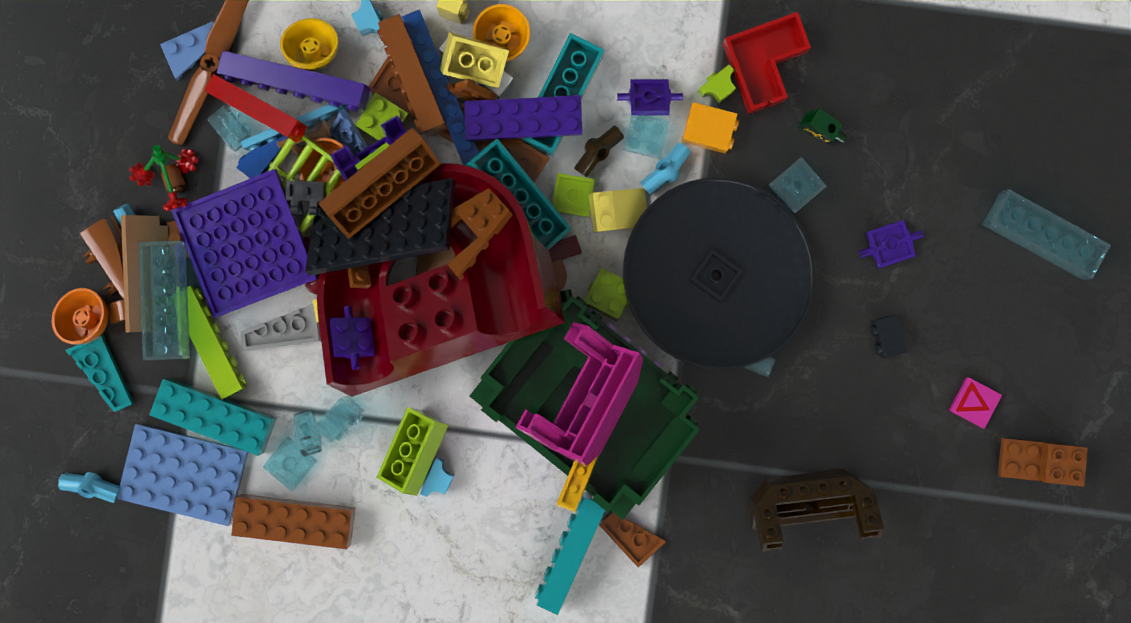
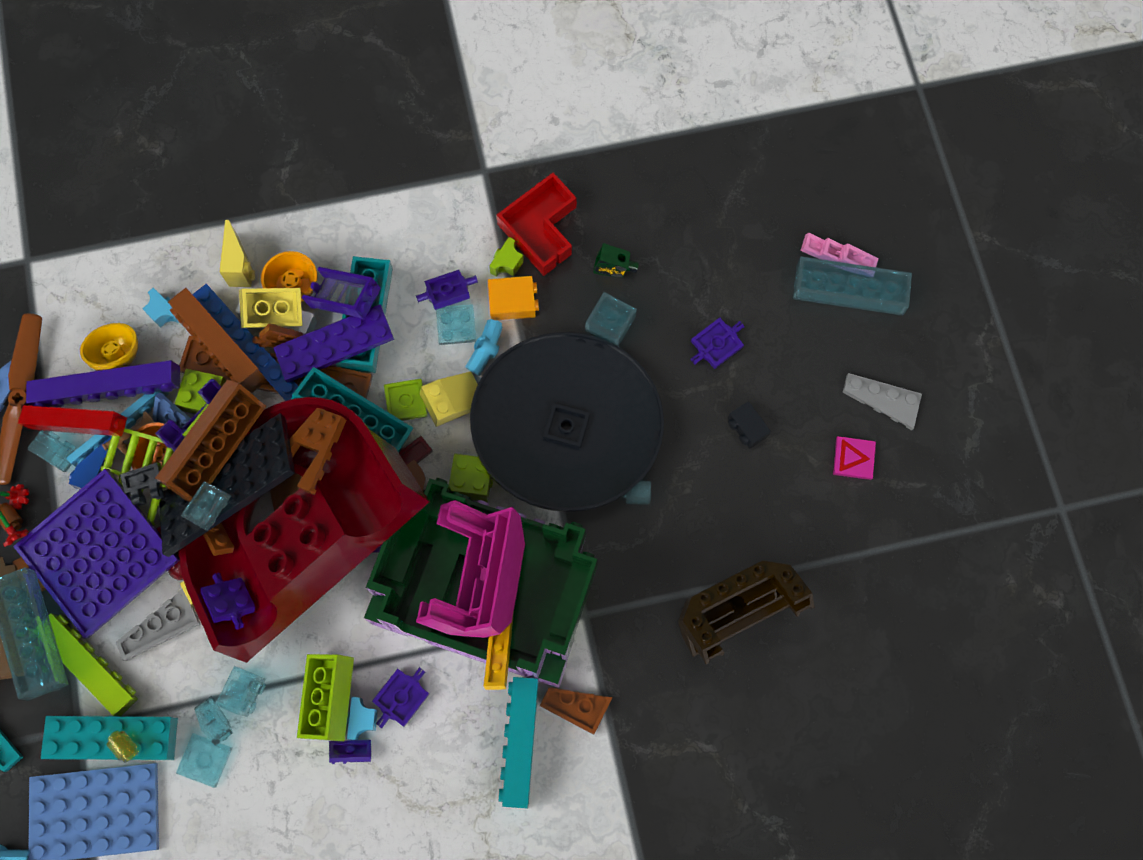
camera: 25 degrees left, 15 degrees down
(222, 432) = (122, 746): none -> clear yellow brick
(293, 521) = (223, 818): dark orange brick -> none
(357, 247) = (206, 506): none -> clear light blue plate
(420, 505) = (350, 751): none -> dark purple plate
(478, 472) = (400, 697): none -> dark purple plate
(549, 71) = (343, 293): none -> dark purple door
(598, 150) = (415, 351): dark brown piece -> none
(1034, 360) = (893, 401): none -> light grey wing
(1043, 461) = (939, 487): dark orange piece -> none
(1046, 195) = (834, 251): none -> bright pink slope

